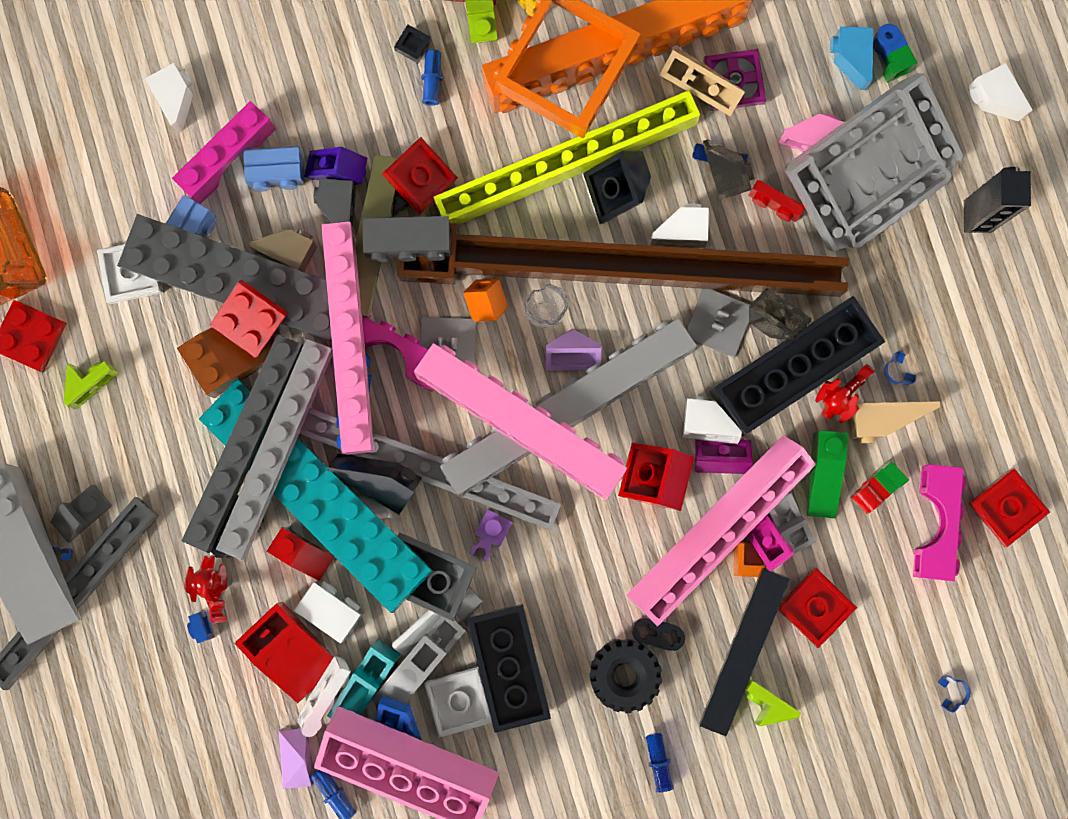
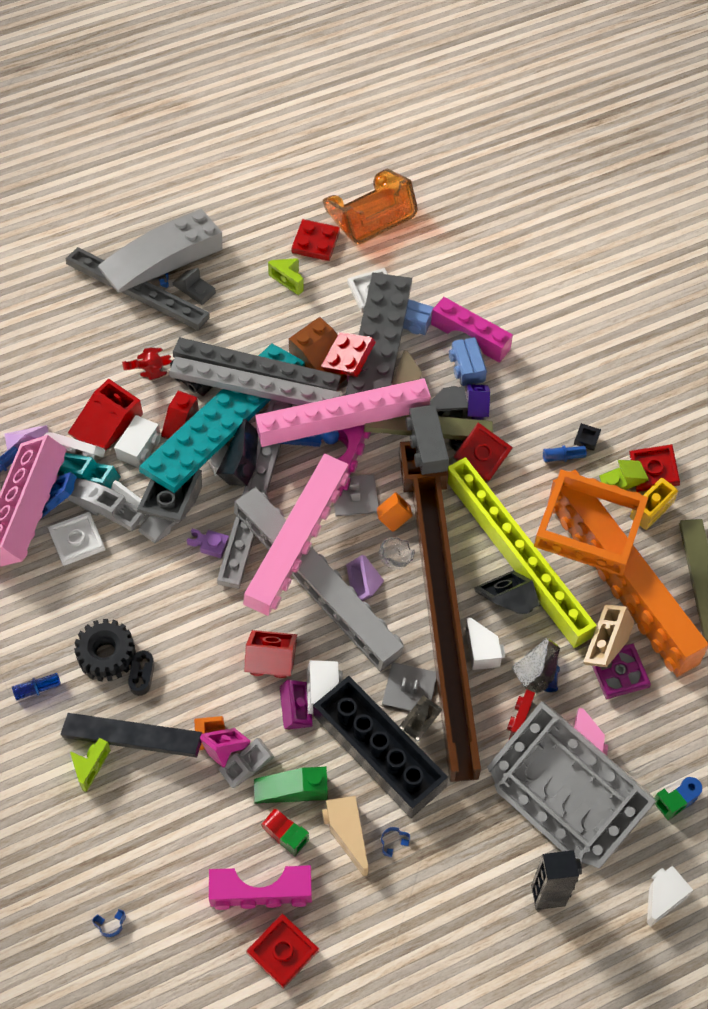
camera: 80 degrees right, 25 degrees down
(172, 94) = (507, 293): white slope -> none
(200, 627) = (115, 364): blue plate -> none
(508, 668) = (105, 562): black brick -> none
(721, 529) = (233, 704): bright pink brick -> none
(816, 607) = (174, 793): red plate -> none
(838, 399) = (356, 781): red piece -> none
(854, 54) = (669, 764): dark azure slope -> none

